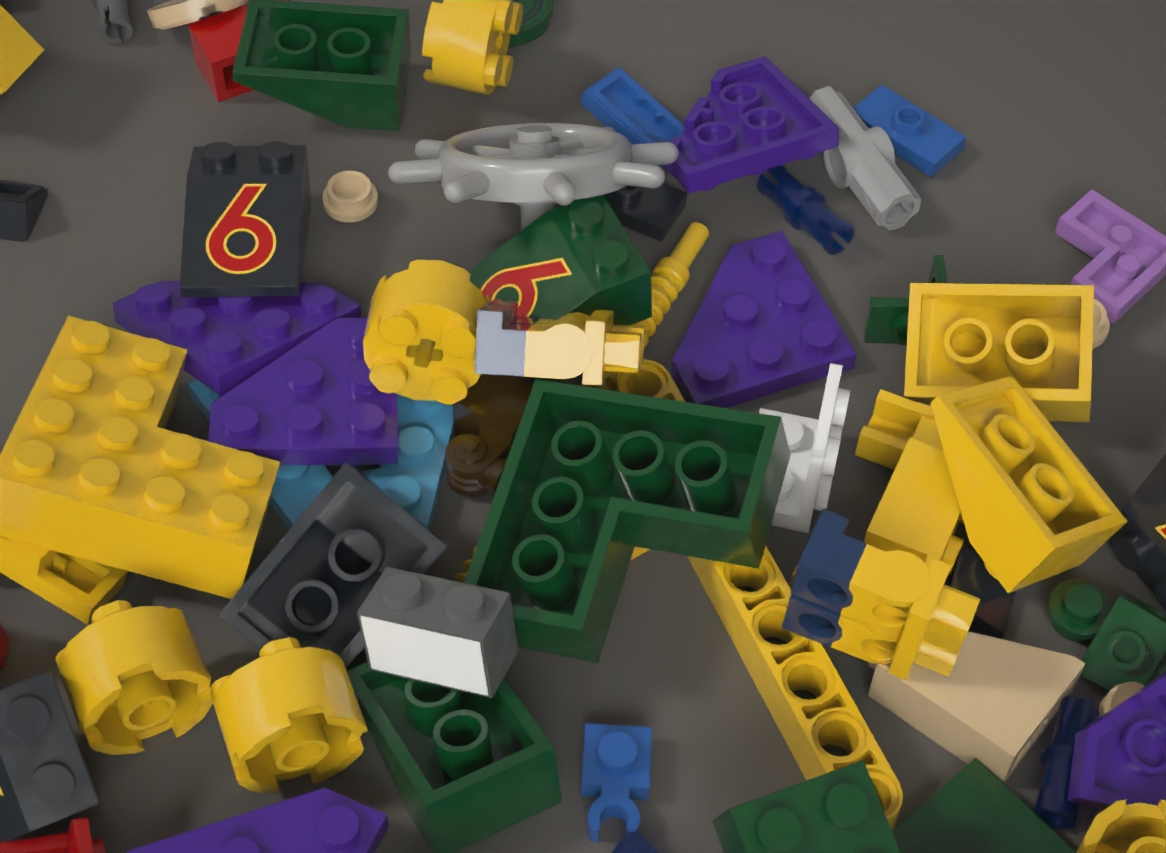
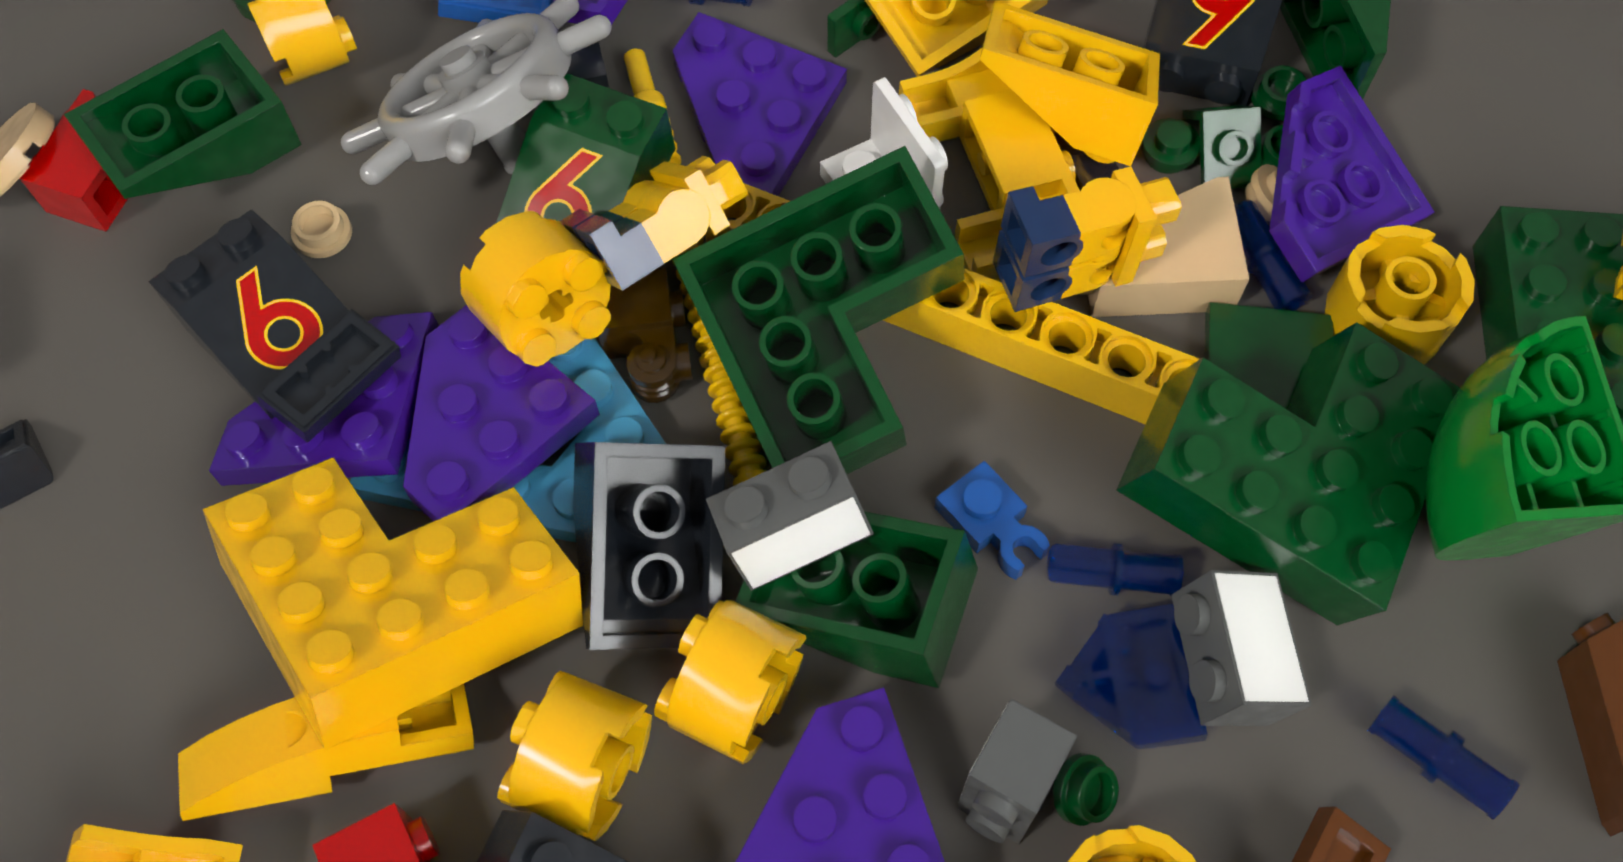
camera: 40 degrees left, 10 degrees up
(239, 292) = (329, 375): none -> black plate

